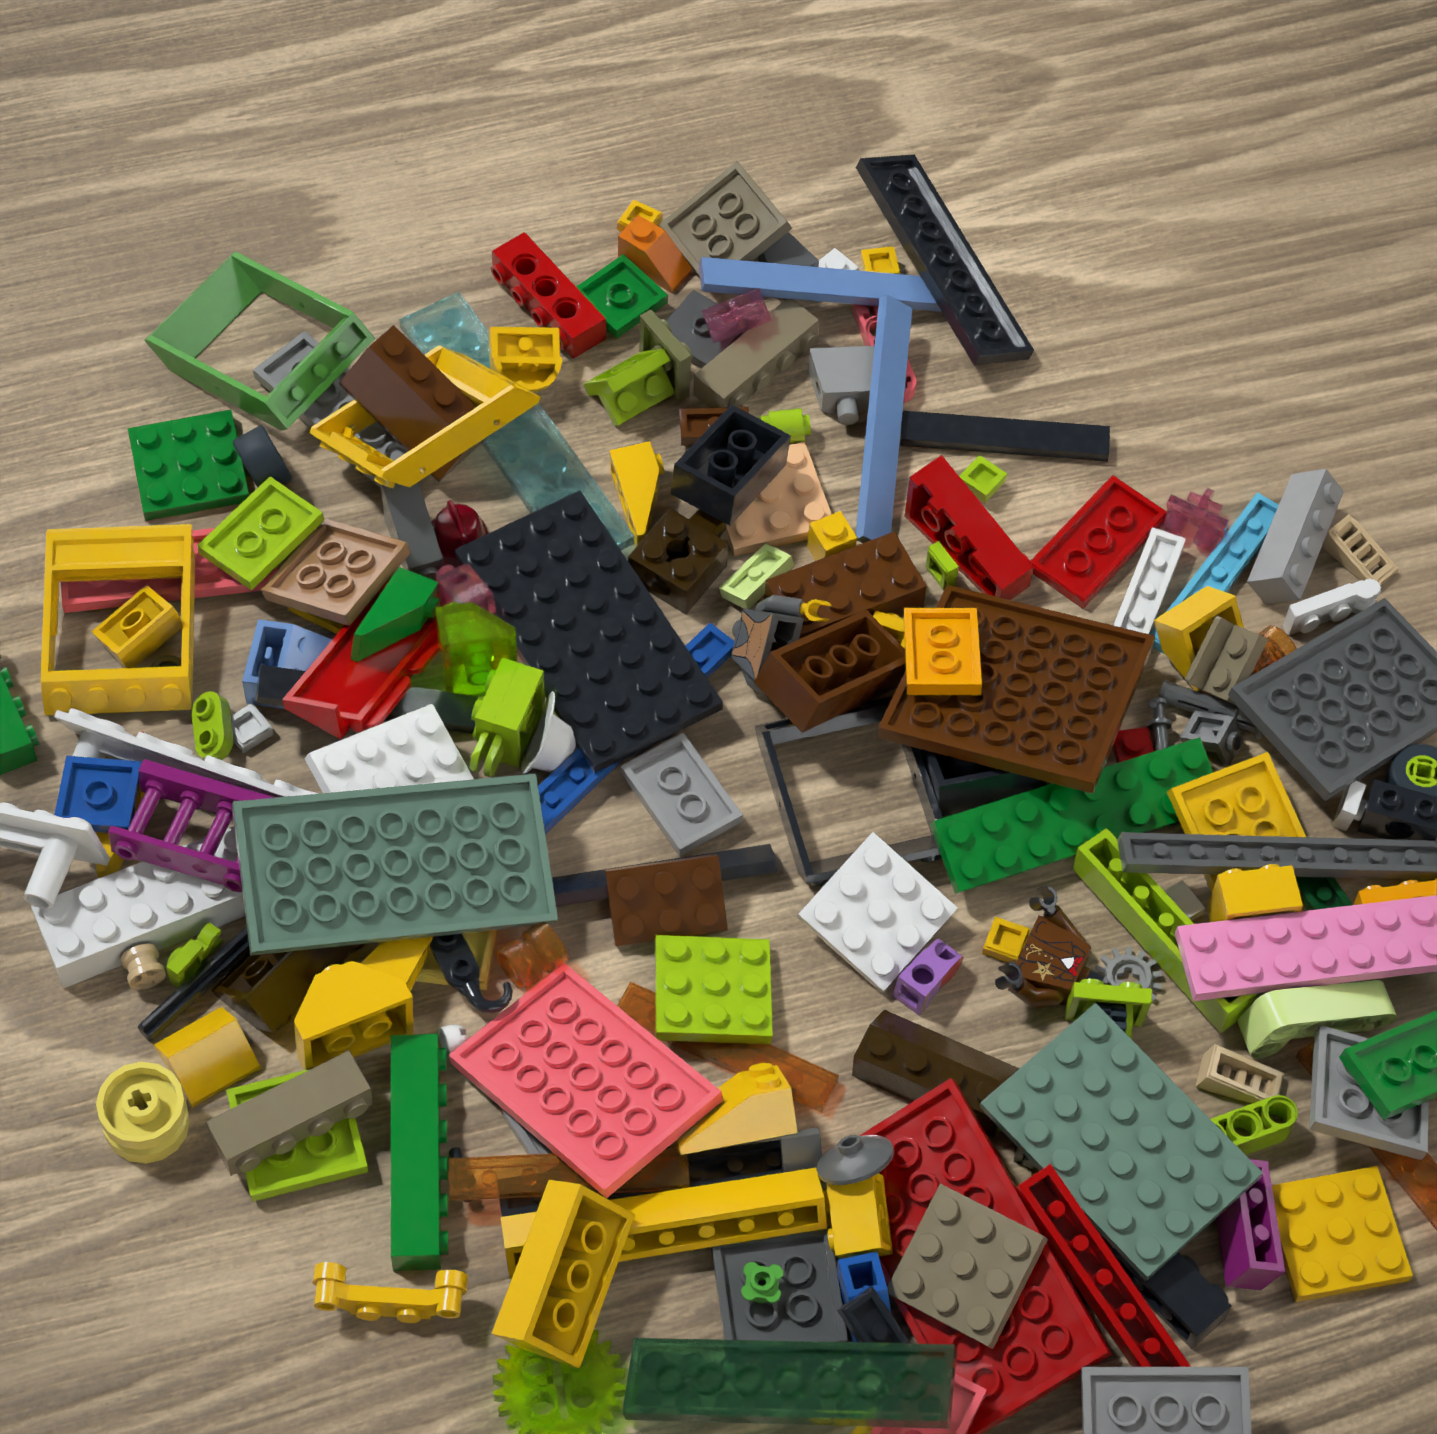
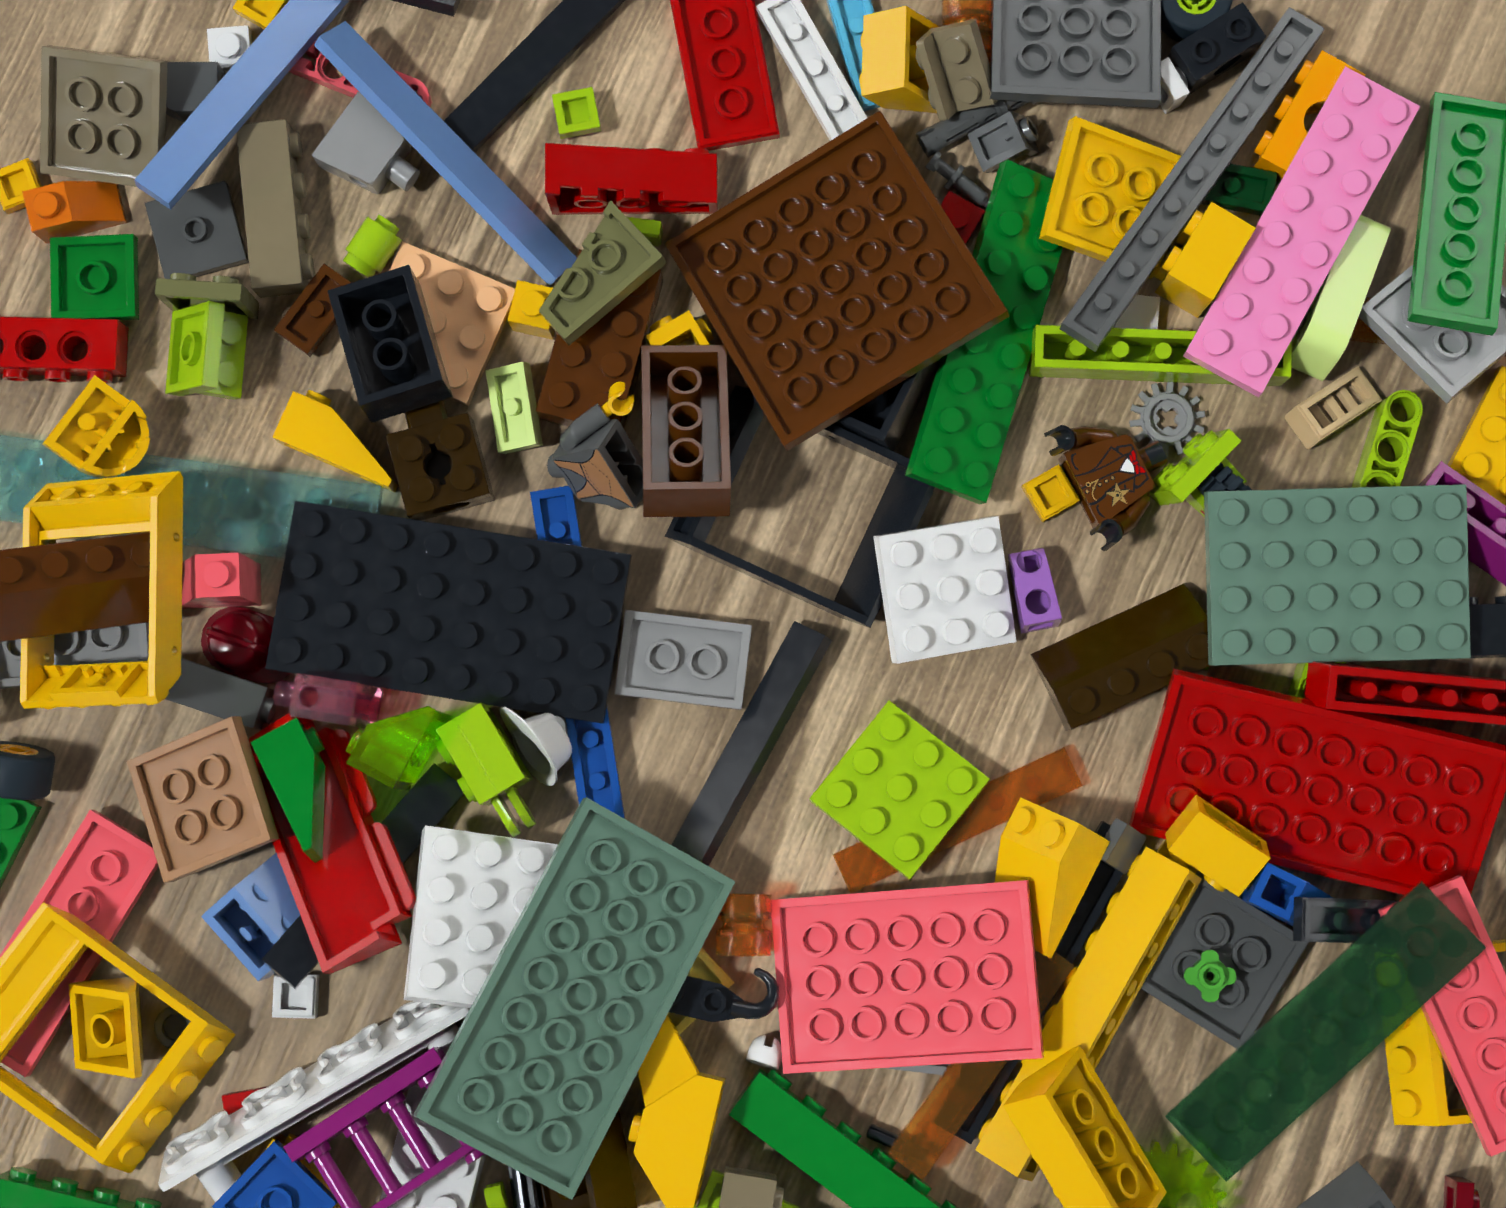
camera: 45 degrees left, 25 degrees up
(212, 726) = (272, 1031): lime plate -> none
(260, 533) = (99, 837): lime plate -> none
(489, 486) = (220, 581): none -> coral slope
(666, 899) = (783, 763): reddish brown plate -> none
(736, 315) = (221, 196): clear pink hips -> none
(855, 1159) = (1188, 816): dark grey dish -> none
(891, 549) = (606, 272): none -> olive wing
(942, 651) = (749, 319): light orange plate -> none
(966, 1265) = (1340, 798): dark tan plate -> none

